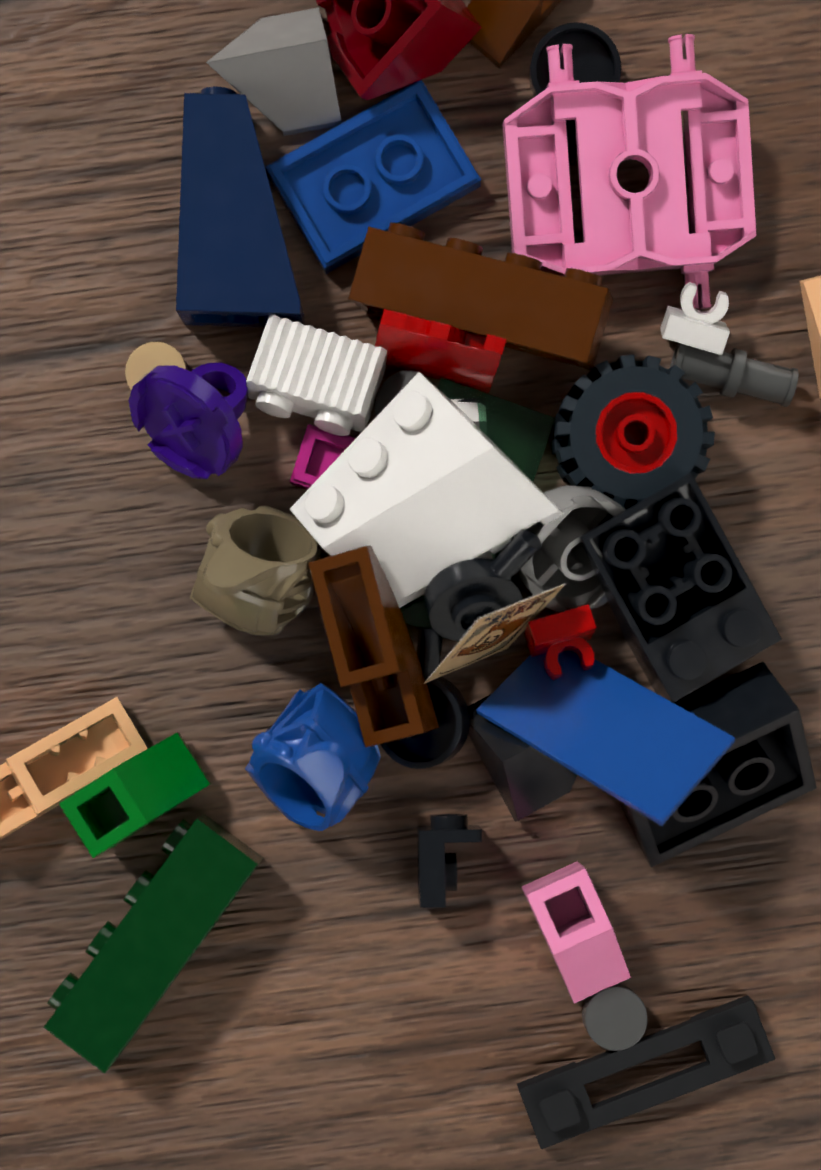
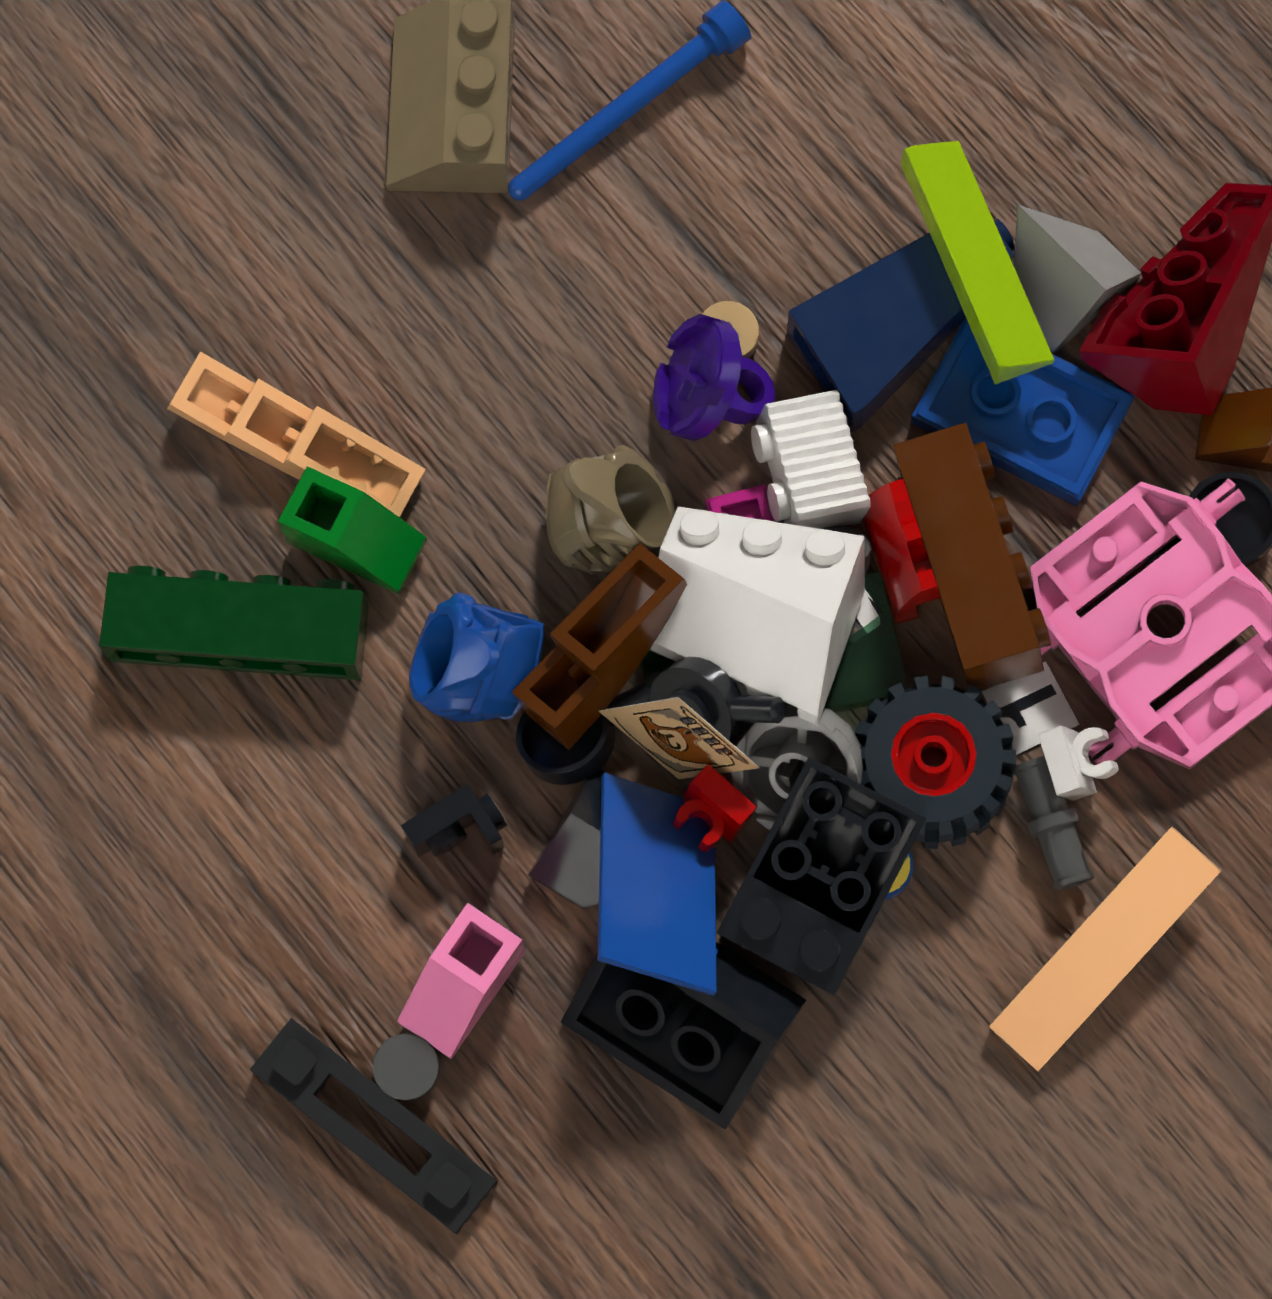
camera: 60 degrees right, 10 degrees down
(231, 127) = (975, 259): none -> lime slope
(630, 329) = (1031, 707): none -> white sticker

